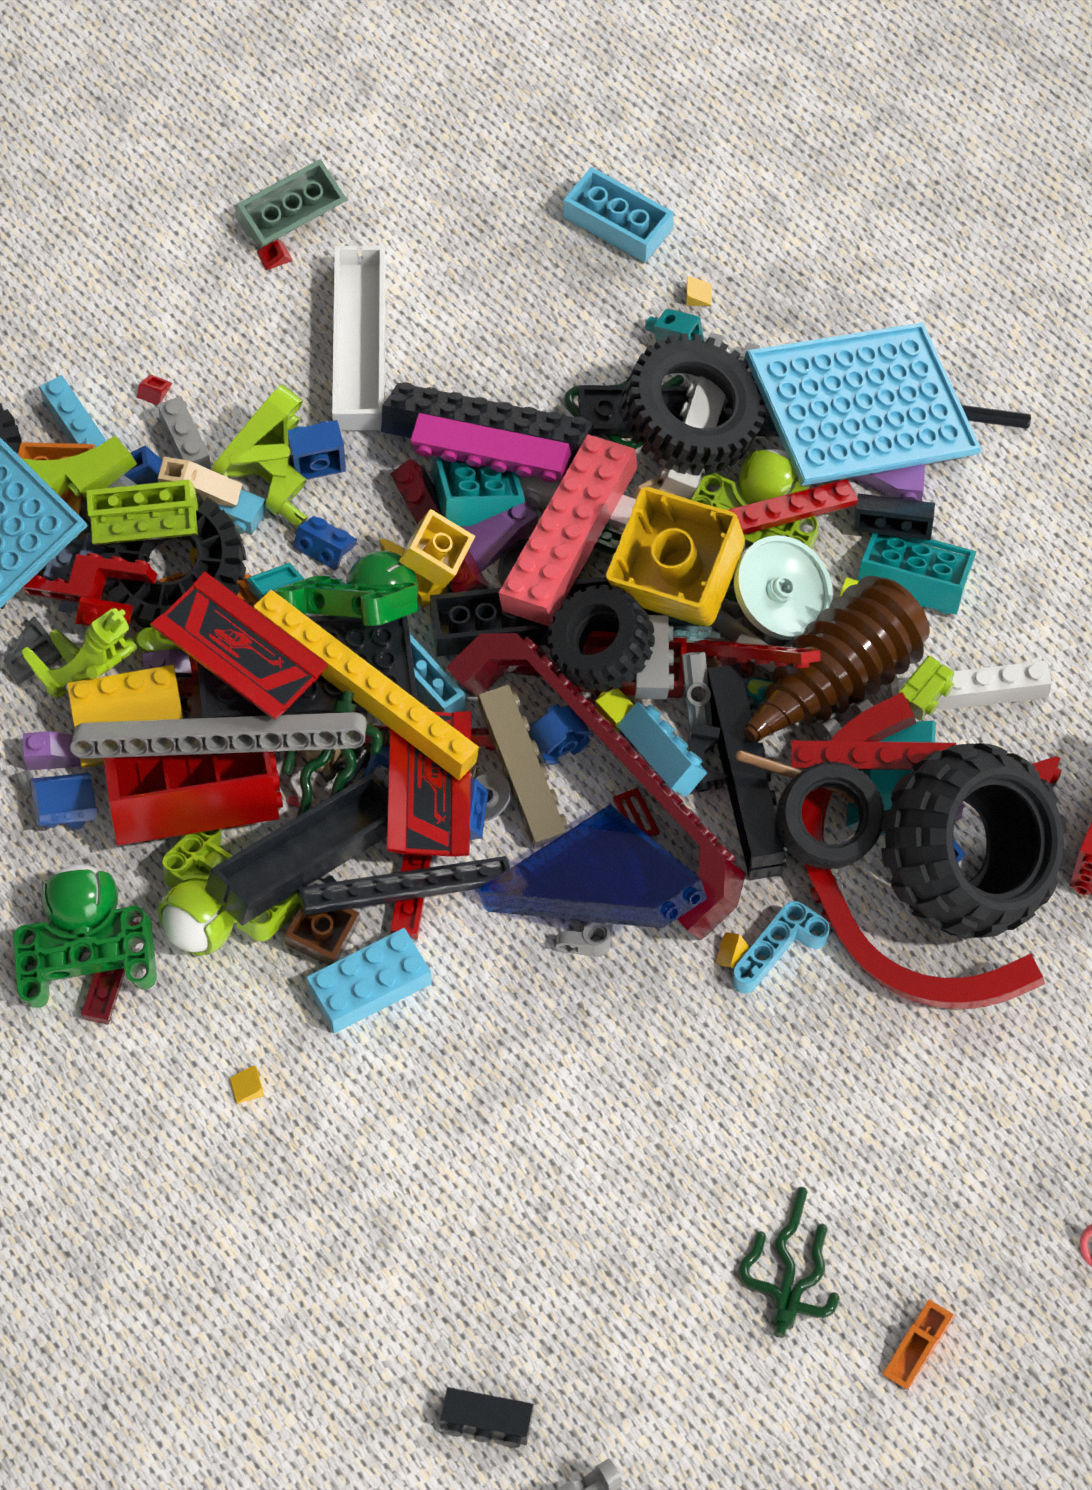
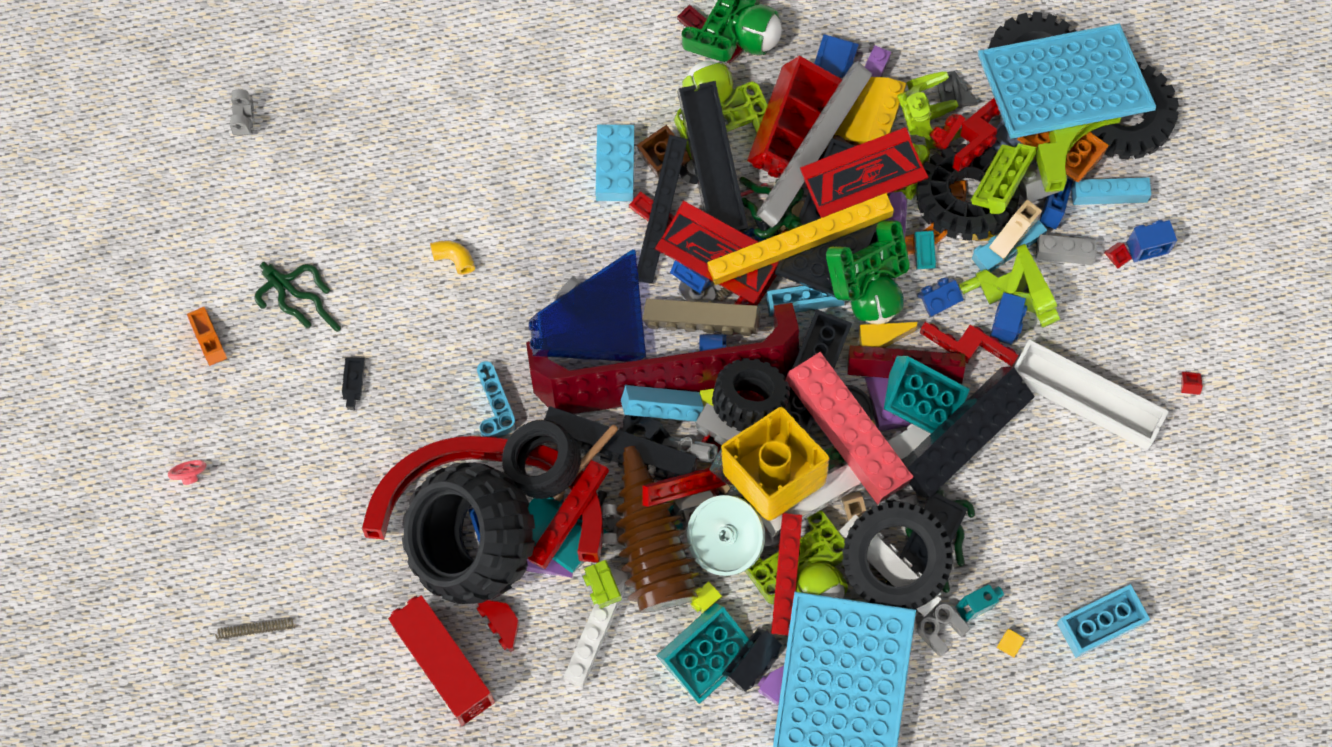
camera: 120 degrees right, 10 degrees up
(123, 352) = (1151, 240): none -> blue brick
(247, 1085) = (592, 71): yellow slope -> none
(289, 203) = (1223, 407): sand green slope -> none
(368, 482) = (969, 343): none -> red bracket
(437, 548) = (876, 334): yellow brick -> none
(486, 1417) = (318, 89): black brick -> none
(490, 448) = (939, 412): dark pink brick -> none
(611, 1105) = (455, 252): none -> yellow cylinder
(731, 950) = (507, 374): yellow slope -> none
(858, 1127) = (353, 381): none -> black hinge

